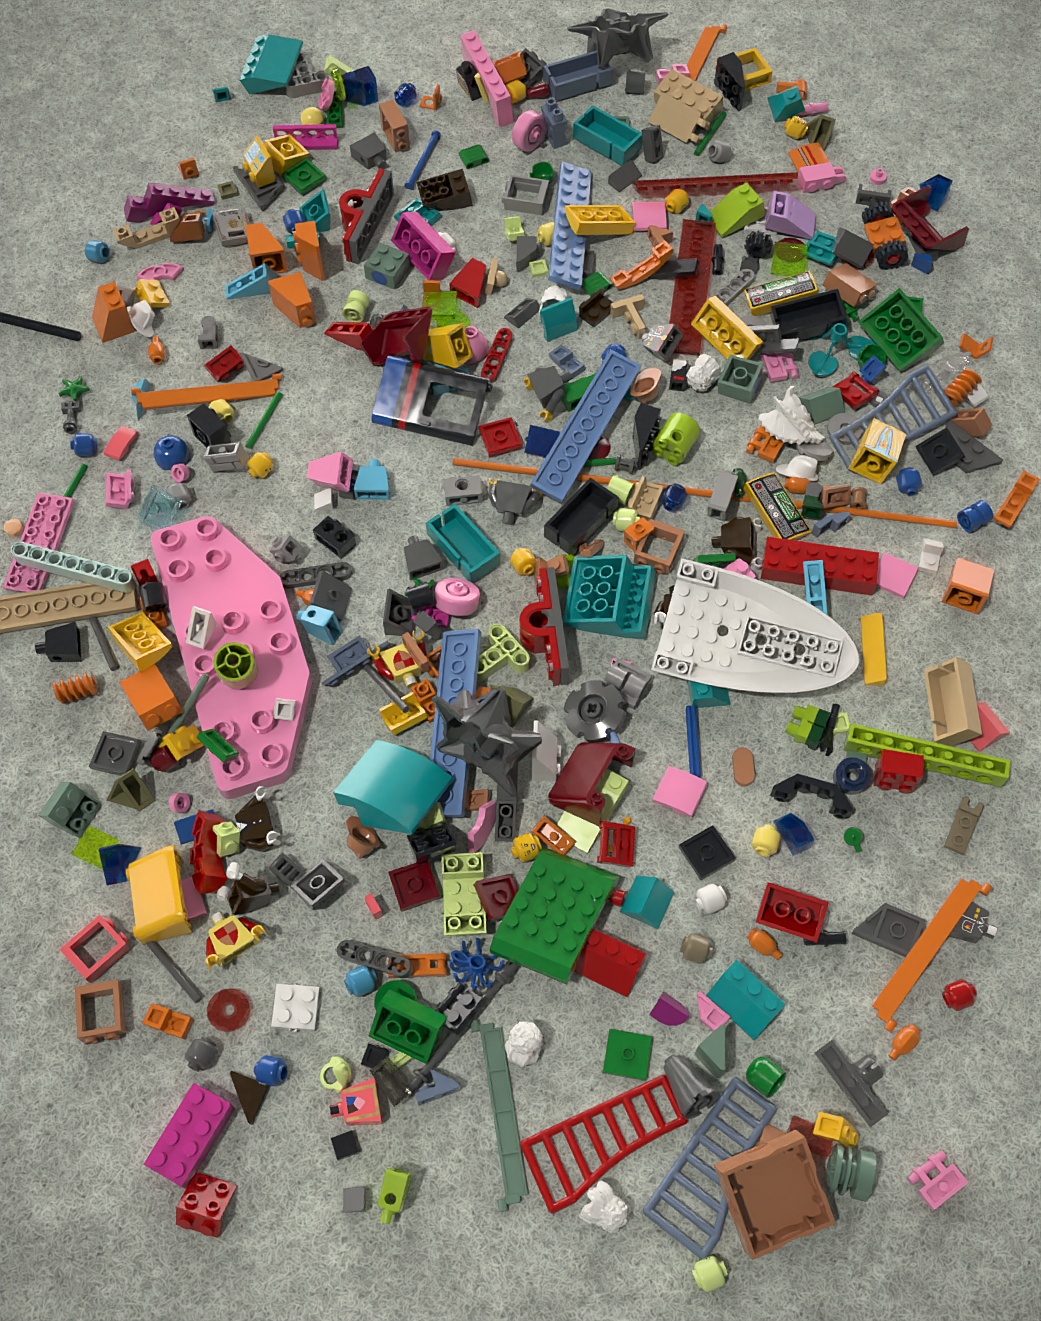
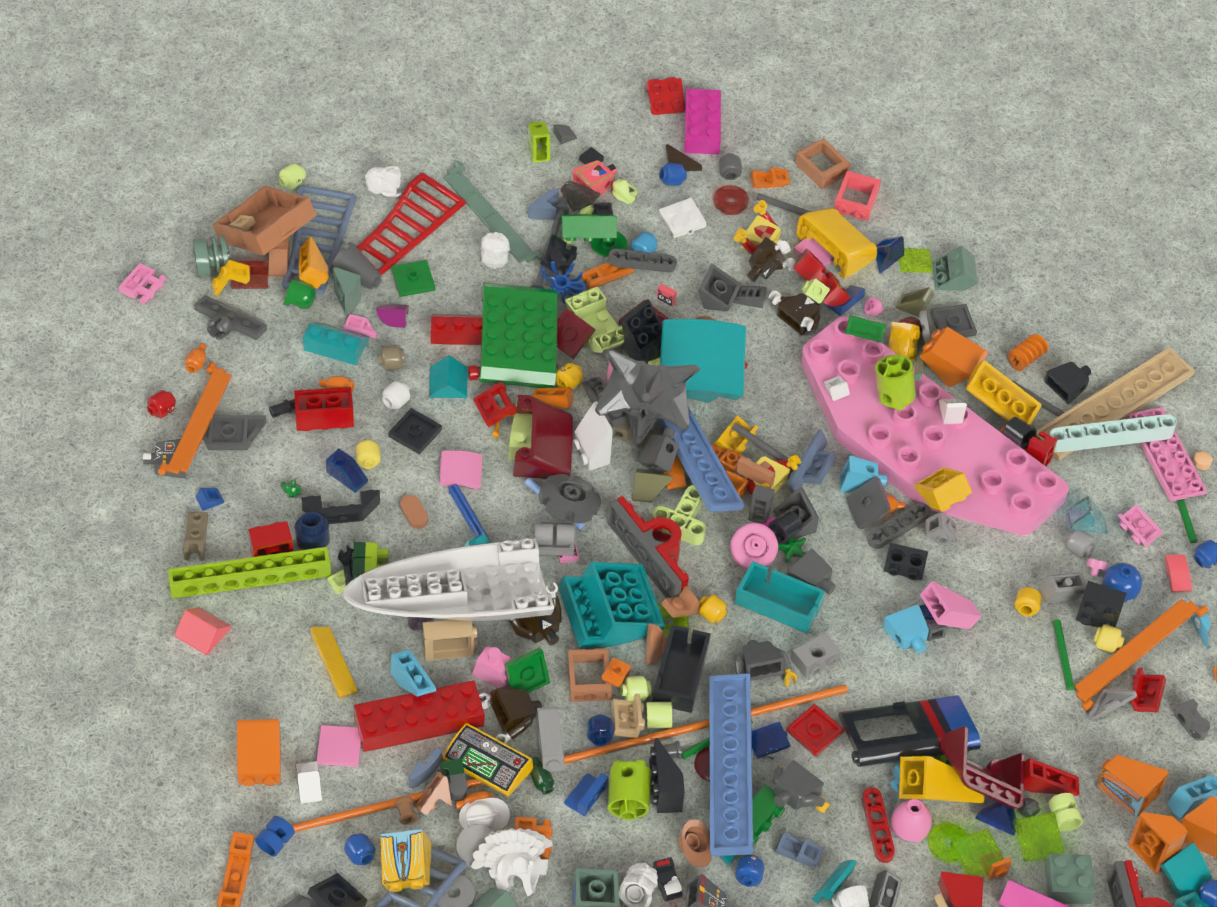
camera: 150 degrees right, 10 degrees down
(263, 567) = (943, 488): none -> yellow slope
(387, 299) = (1039, 836): none -> clear neon green tile
(706, 459) = (586, 793): none -> blue panel
(739, 1107) = (312, 264): none -> light orange slope
(798, 1211) = (243, 222): none -> tan plate
(936, 864) = (209, 498): none -> blue slope
(952, 702) = (244, 632): tan piece -> none

